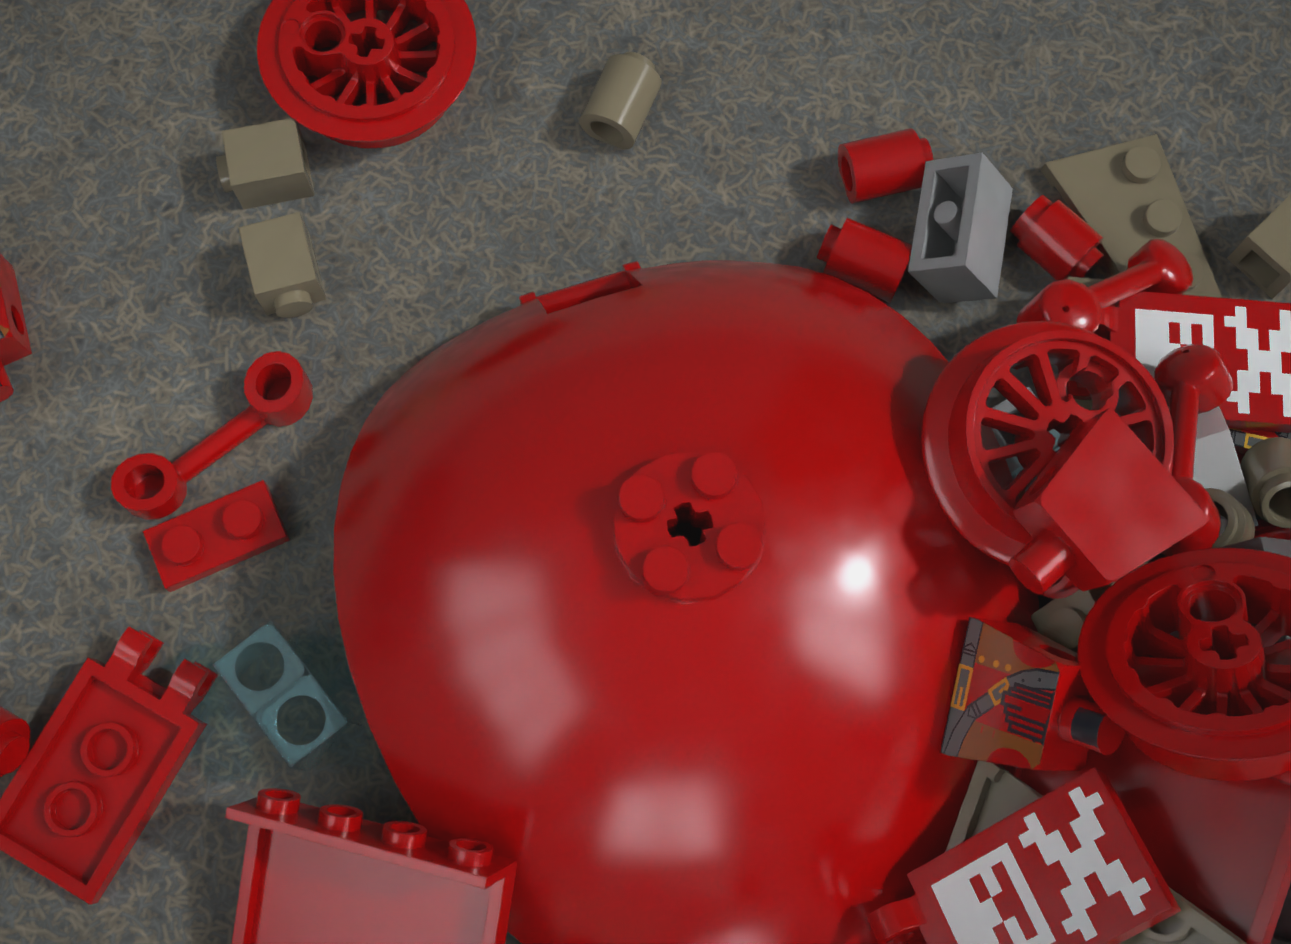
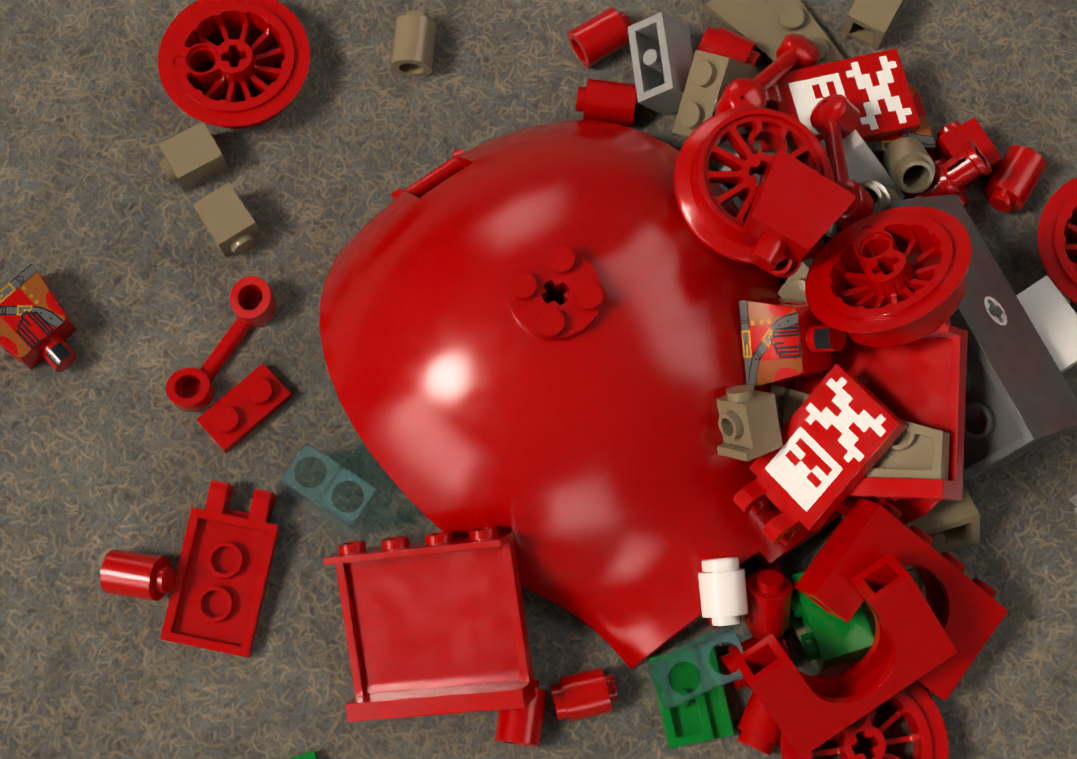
camera: 15 degrees left, 0 degrees up
(927, 814) = (748, 423): none -> dark tan brick
(1011, 279) = (704, 88): none -> dark tan brick

